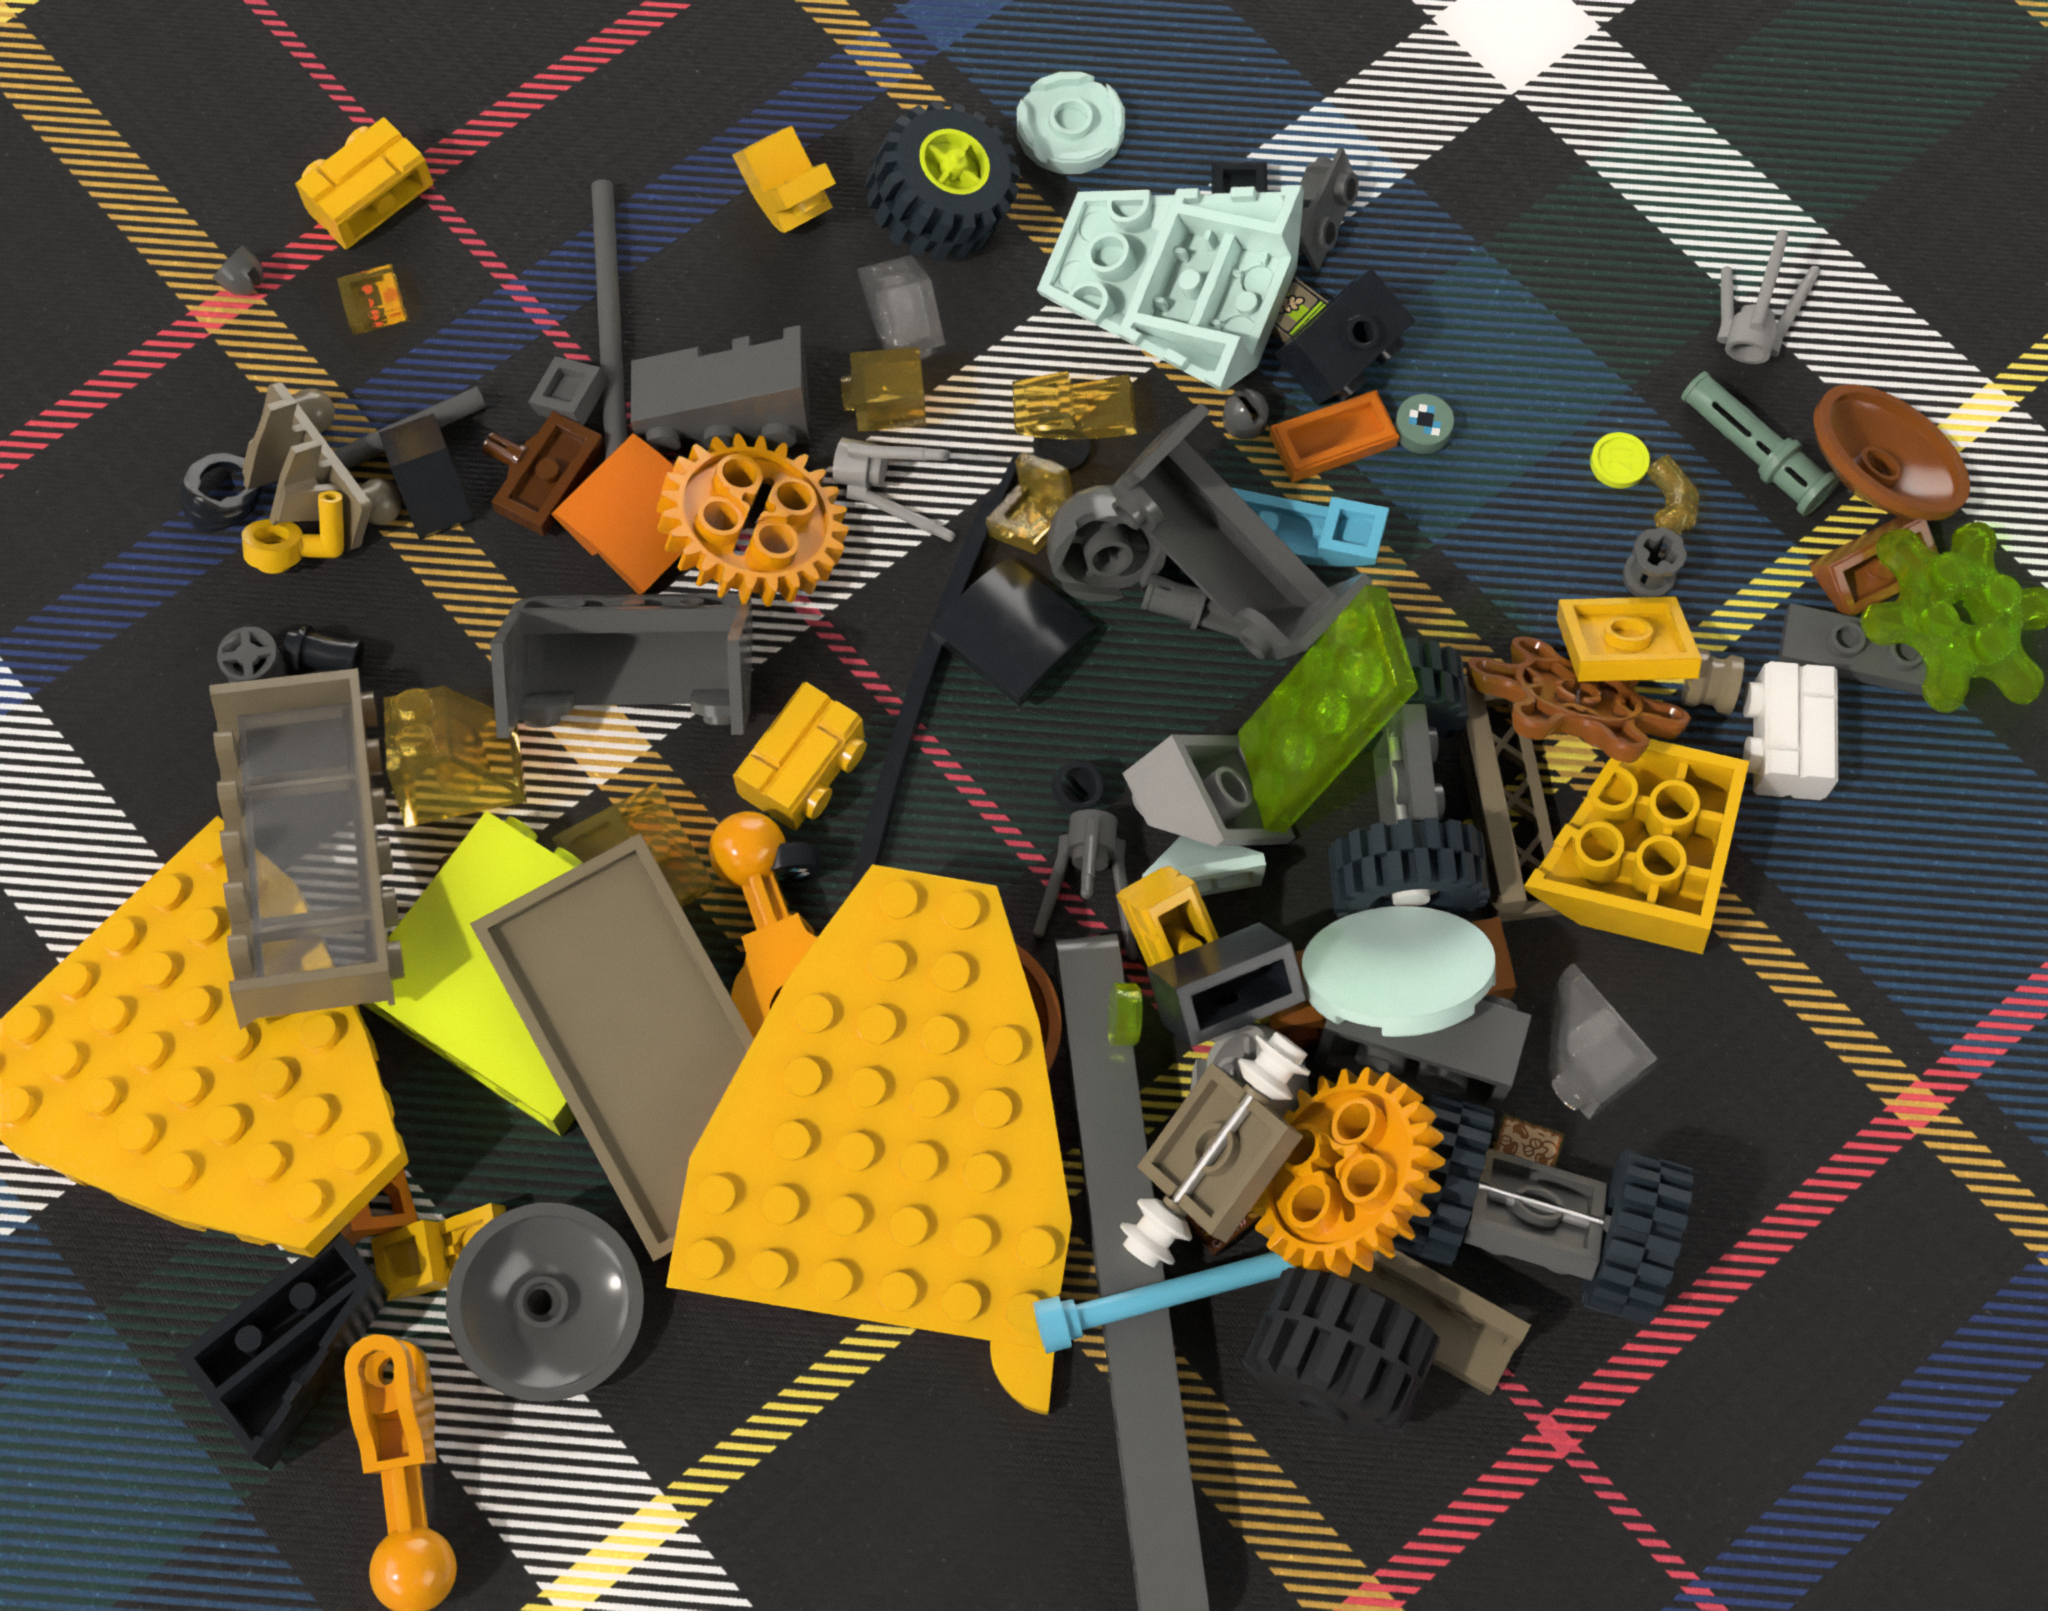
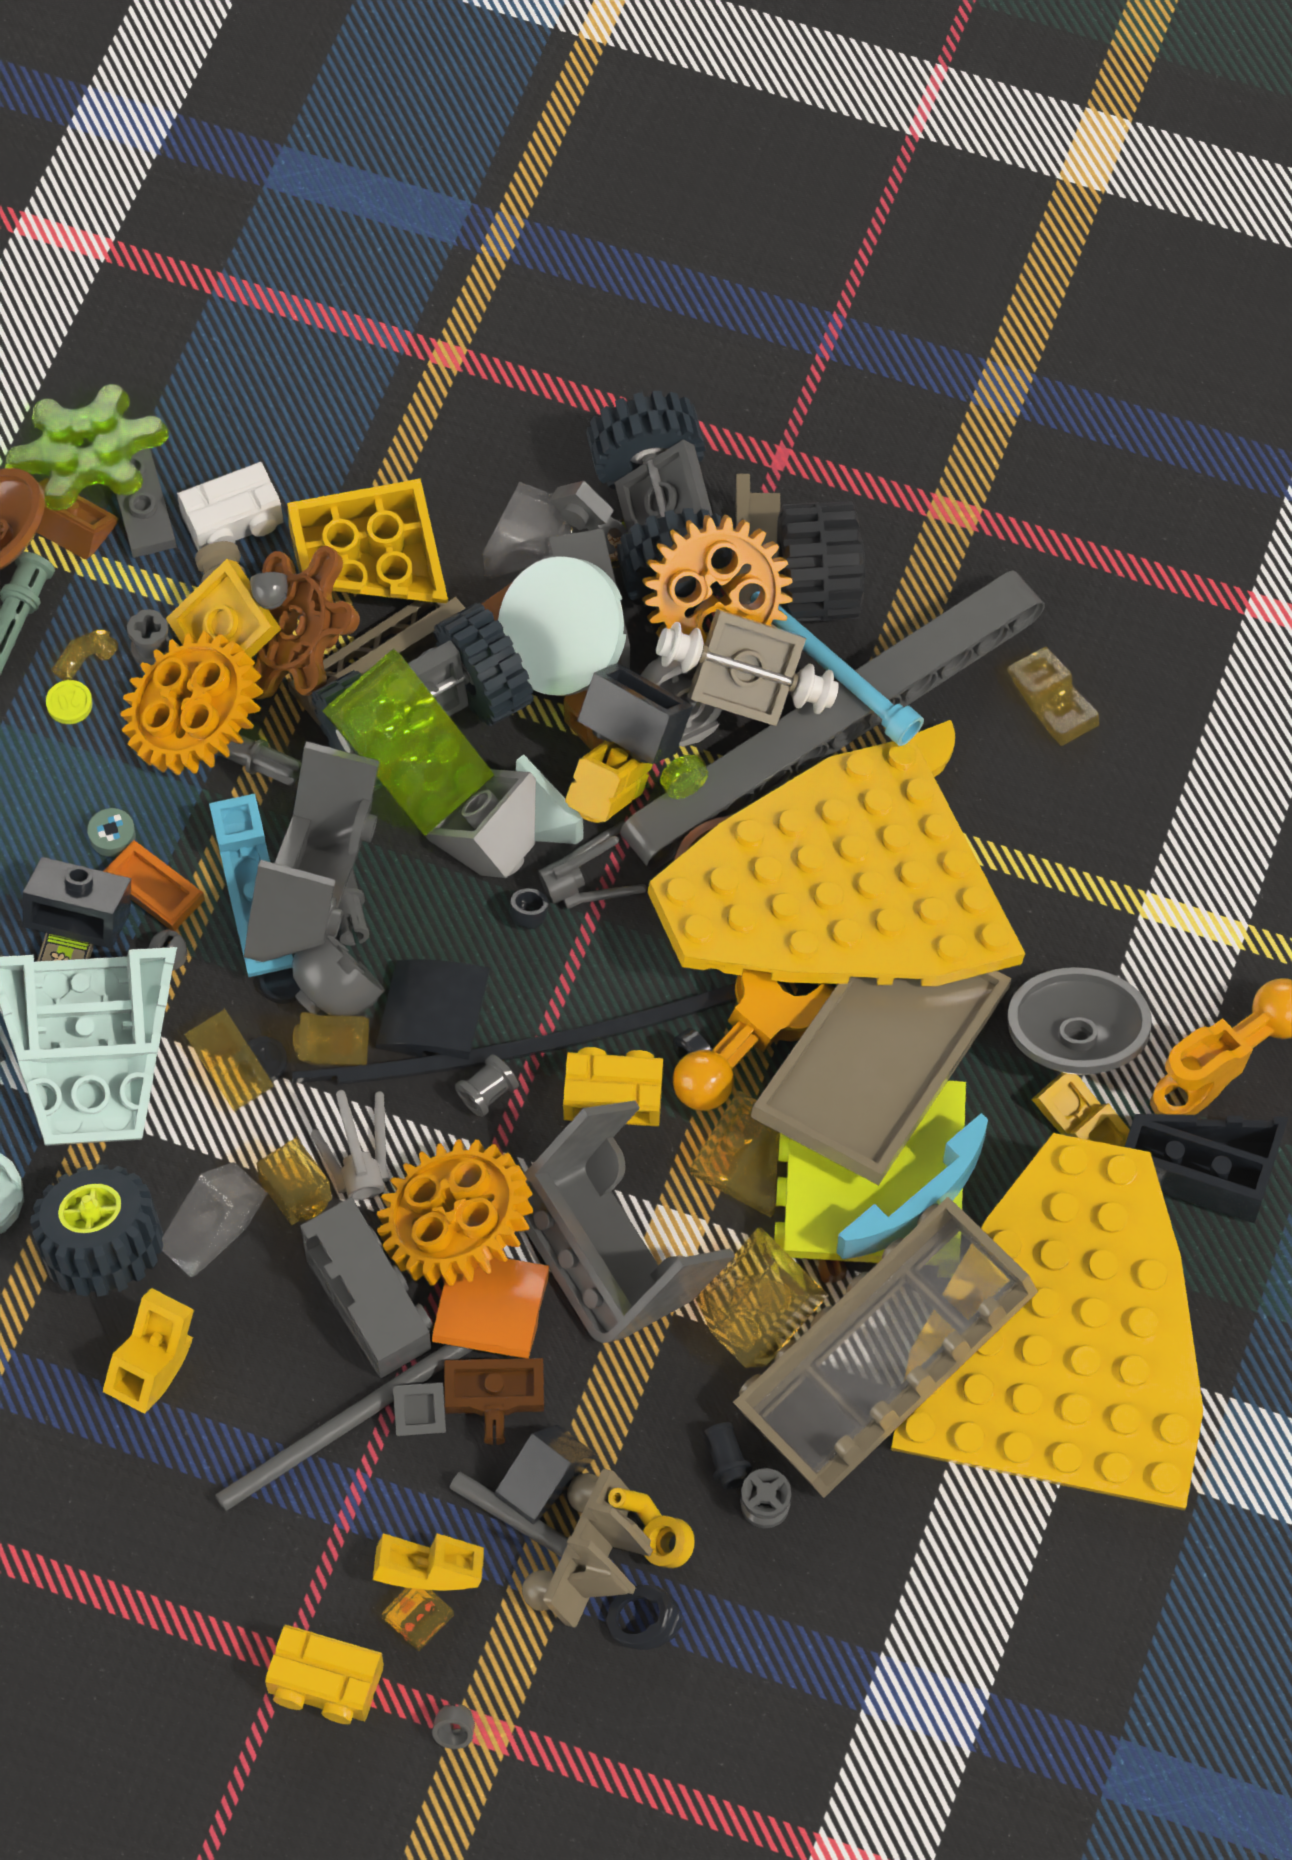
camera: 120 degrees left, 5 degrees down
(406, 322) = (443, 1566): none -> yellow slope
(427, 903) = (876, 1230): none -> medium azure slope
(886, 633) = (486, 1085): none -> dark grey bush
(1013, 1568) = (1053, 699): none -> clear yellow slope
(1443, 600) = (265, 760): none -> dark grey axle
(1535, 556) = (191, 703): none -> light orange gear
(1570, 1102) = (586, 509): none -> dark grey plate
(1630, 679) = (269, 589): none -> dark grey hinge

